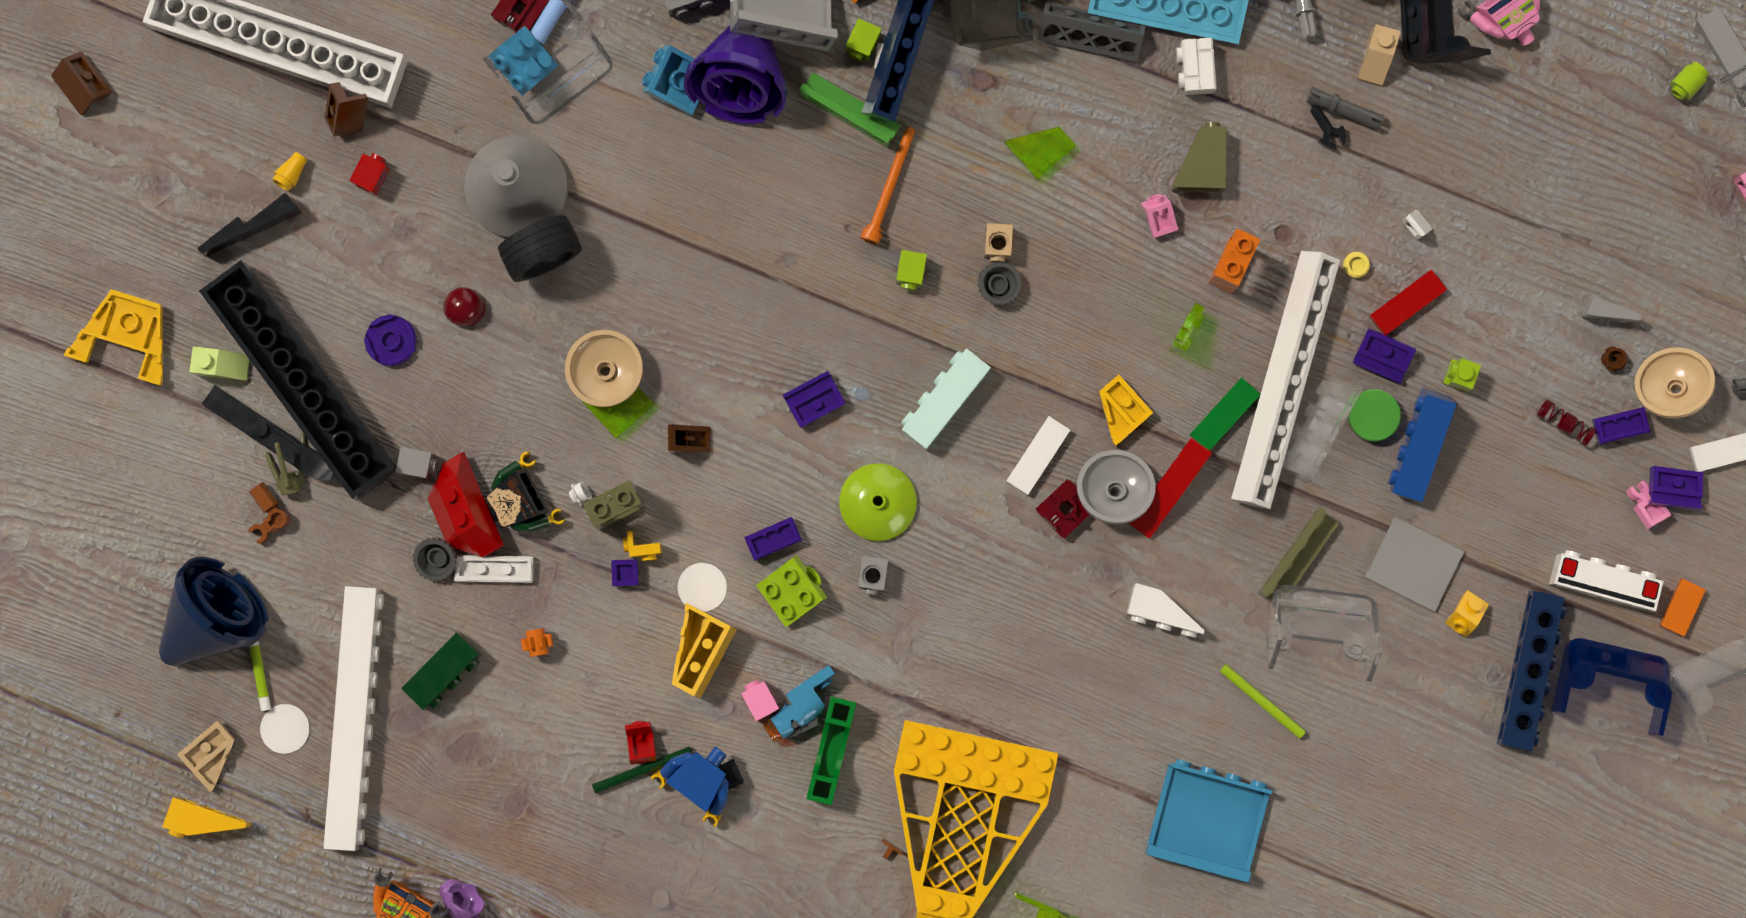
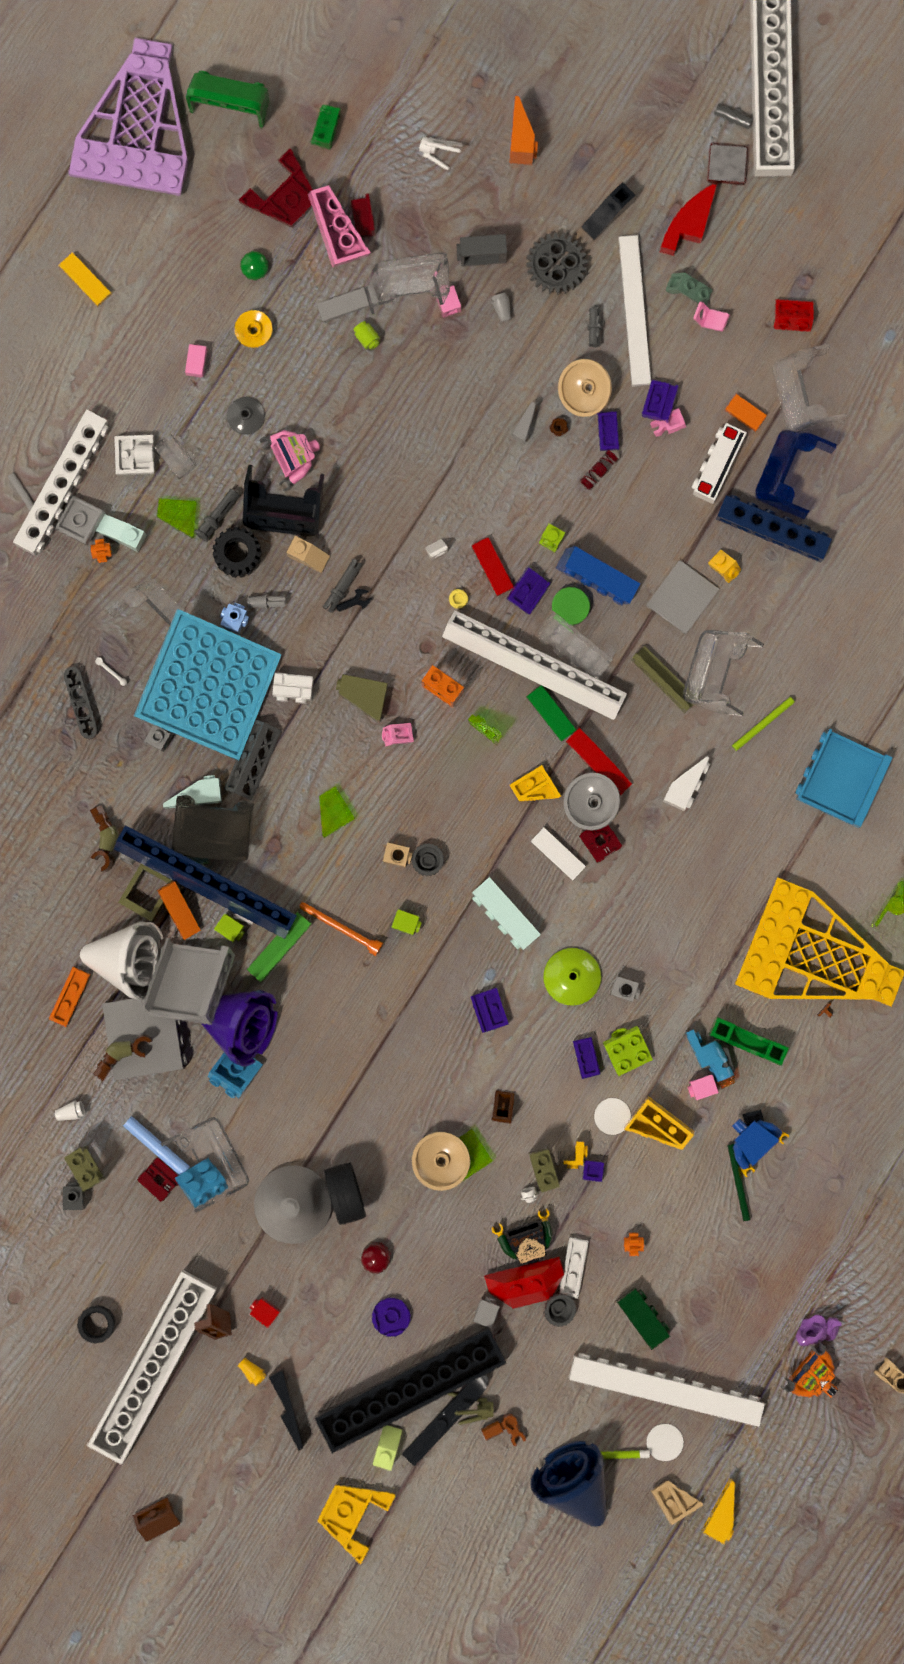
camera: 85 degrees left, 0 degrees up
(640, 742) = (719, 1180): red bracket -> none

